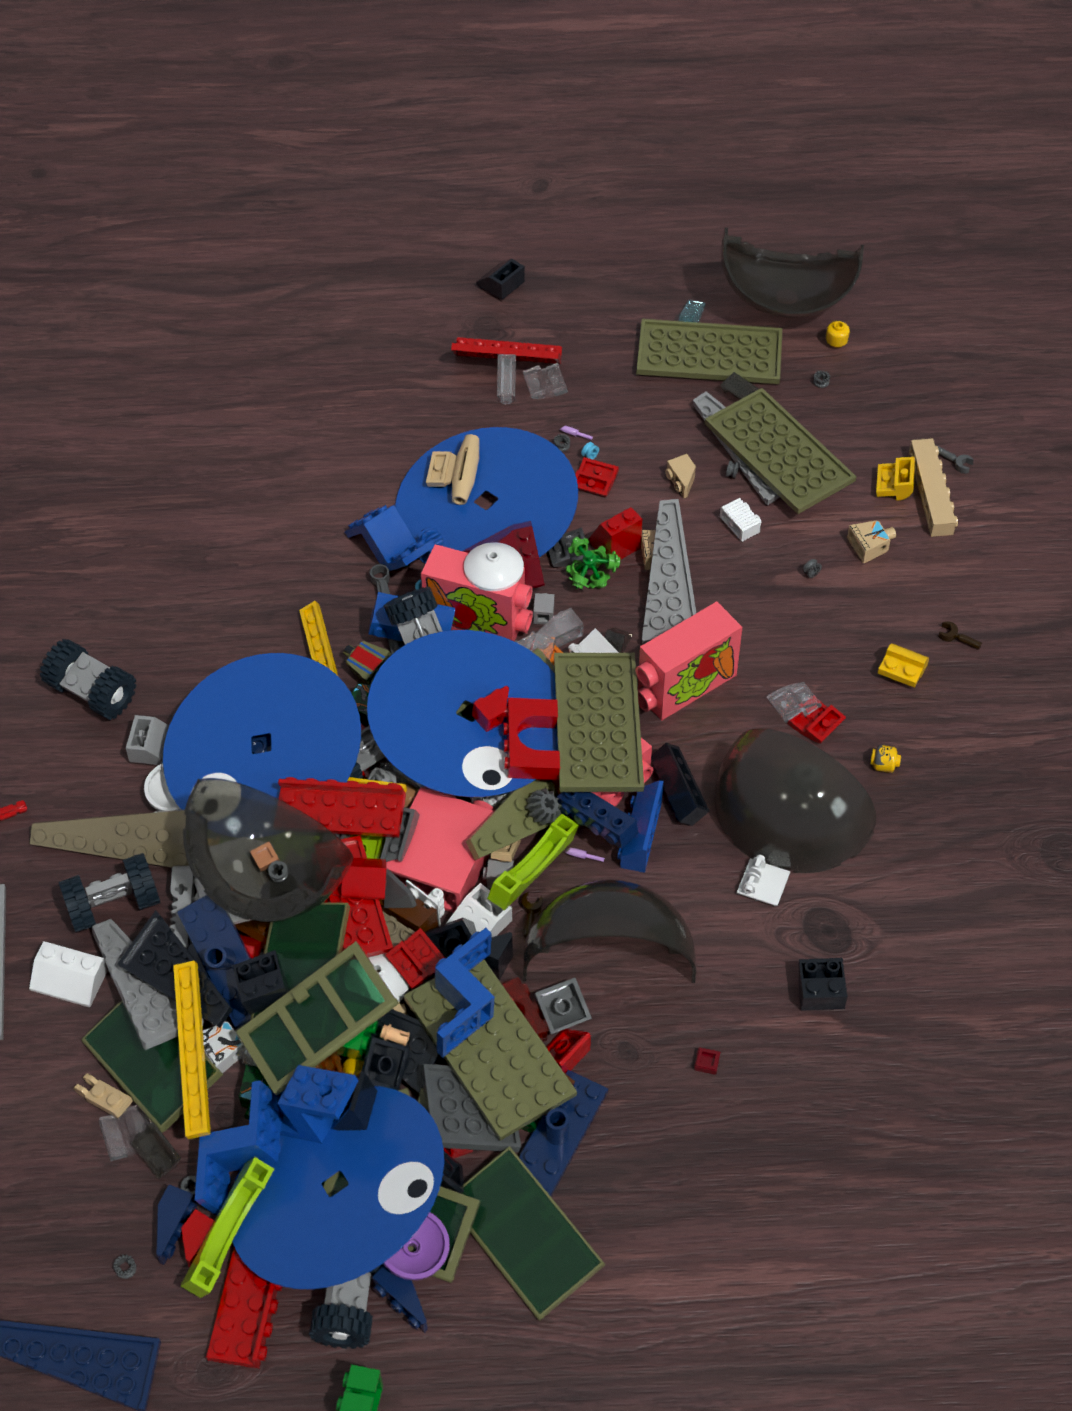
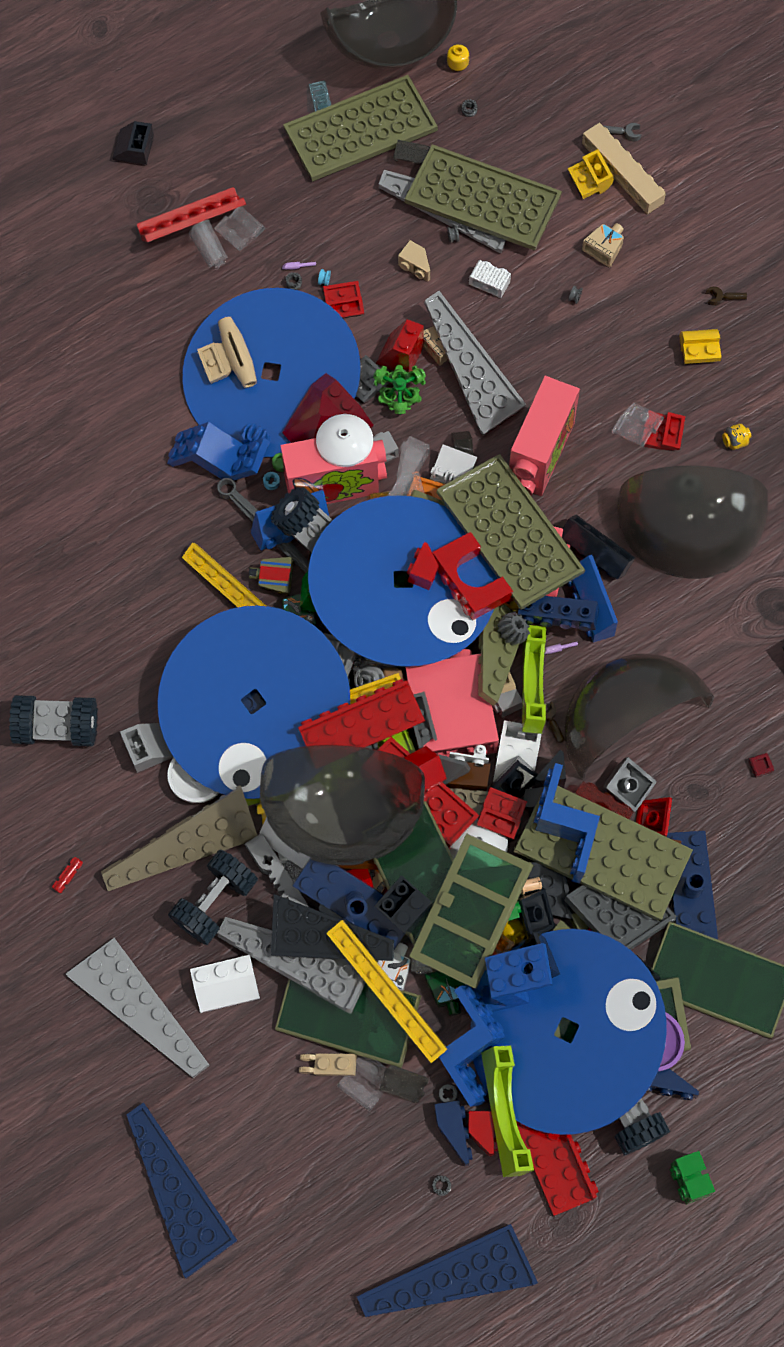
camera: 30 degrees left, 15 degrees up
(264, 856) = (329, 798): nougat tile -> none
(276, 878) = (342, 807): dark grey bush -> none
(763, 881) = (709, 593): white hinge -> none

